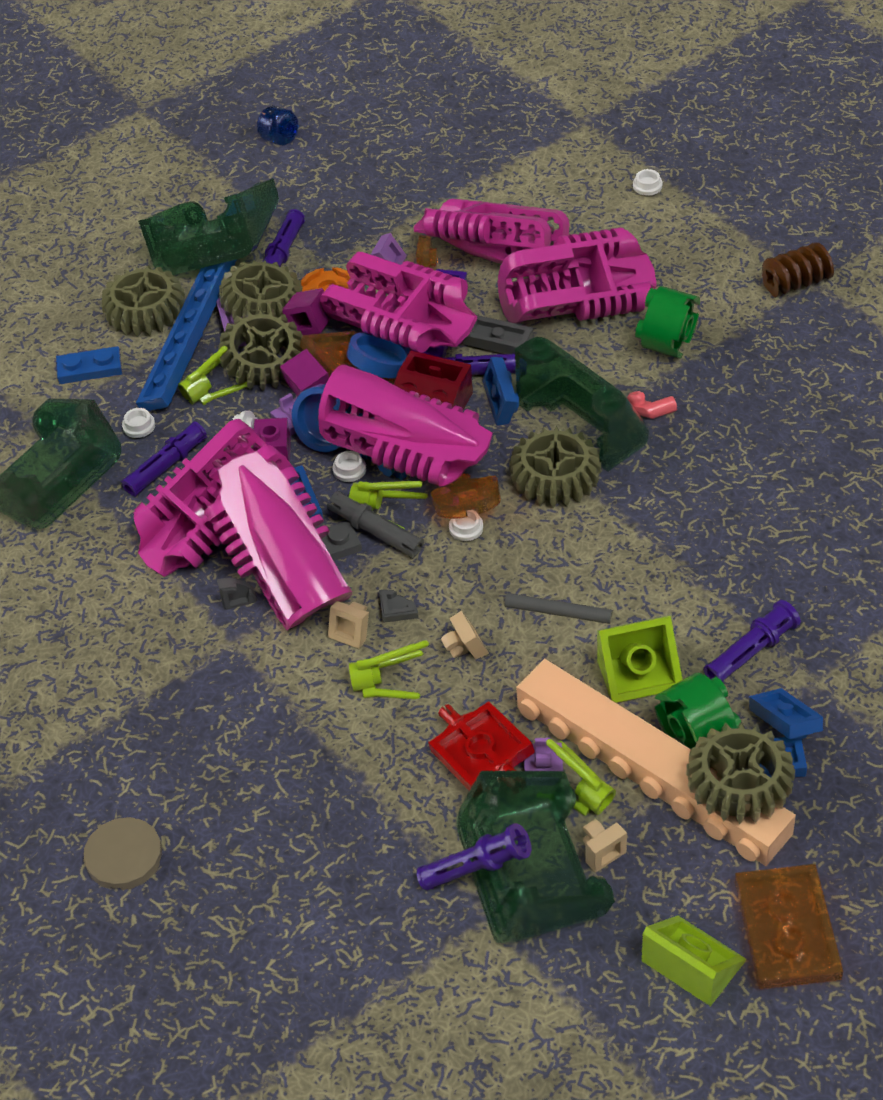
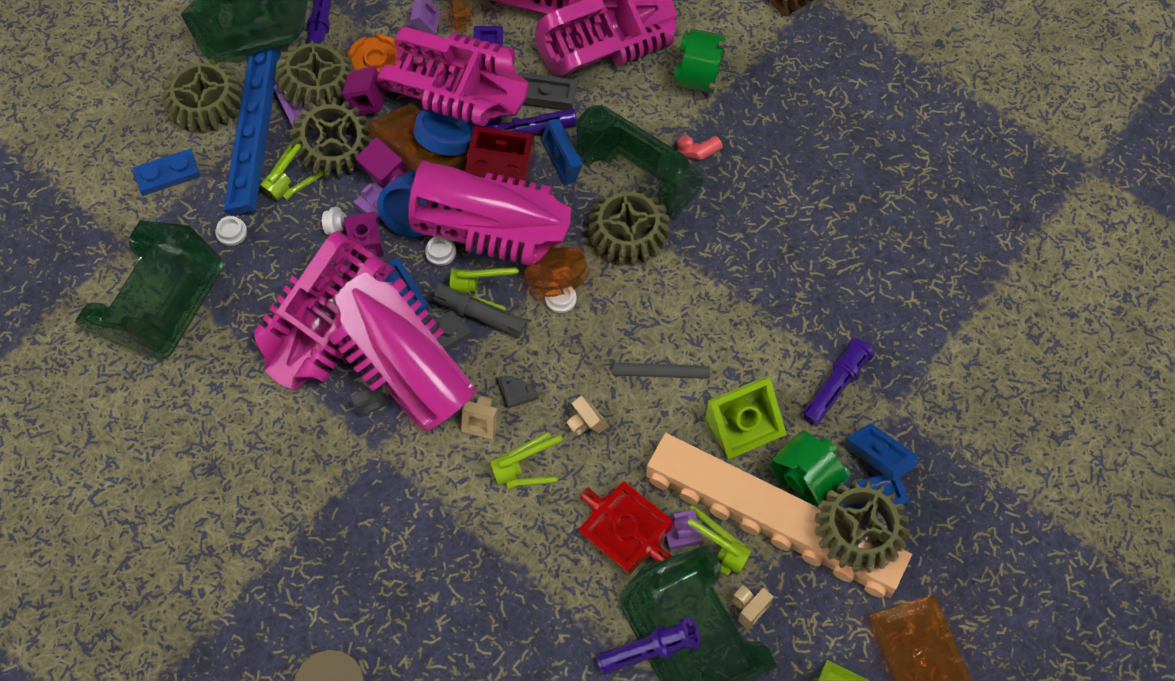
camera: 15 degrees left, 15 degrees up
(174, 450) = (273, 256): dark purple pin -> none

